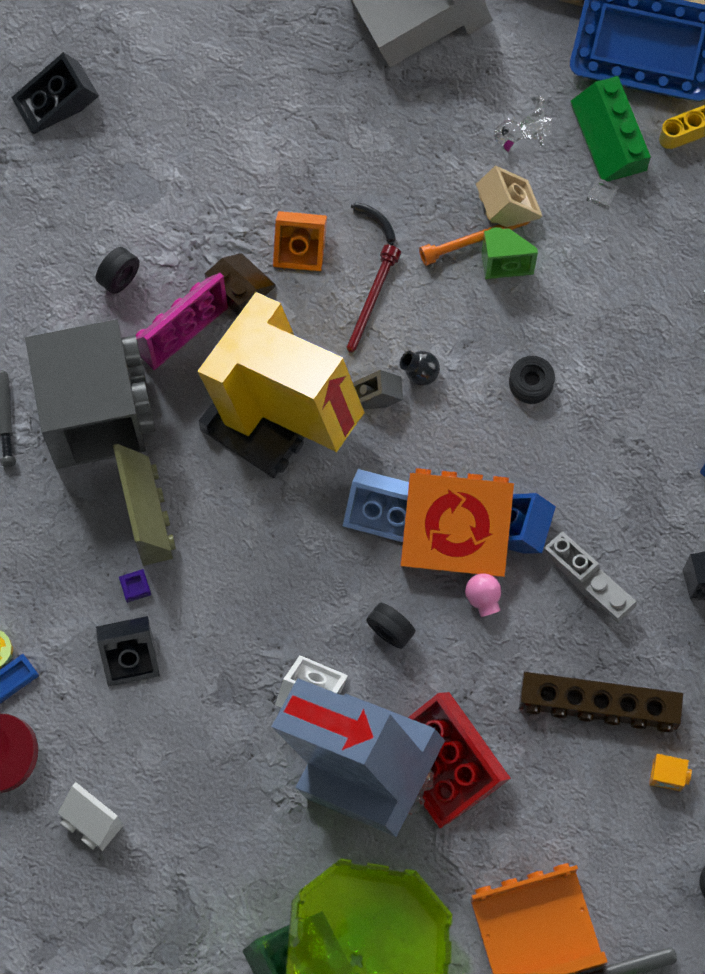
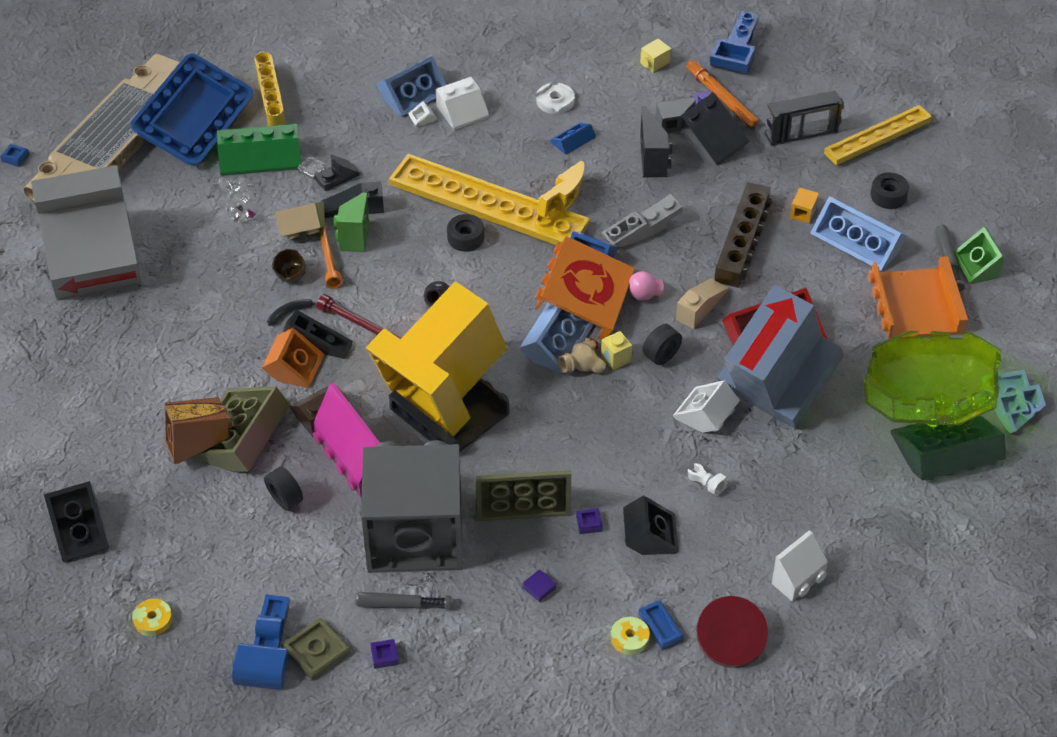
camera: 80 degrees left, 20 degrees down
(42, 548) = (539, 585): none -> dark purple tile
(176, 164) = (194, 426): none -> dark orange slope
(196, 210) = (254, 420): none -> olive slope
(202, 714) = (715, 484): none -> white piece
(336, 257) = (321, 336): none -> black slope
(360, 541) = (582, 358): none -> tan animal
(376, 576) = (616, 350): none -> light yellow brick
(433, 203) = (289, 265): none -> dark brown hair
(480, 664) = (699, 301): none -> tan slope
(554, 251) = (374, 196): none -> black slope
(589, 396) = (484, 200): none -> yellow plate
(599, 222) = (338, 173): none -> black slope
(625, 481) = (564, 193): none -> yellow slope
(635, 846) = (858, 233): none -> light blue slope

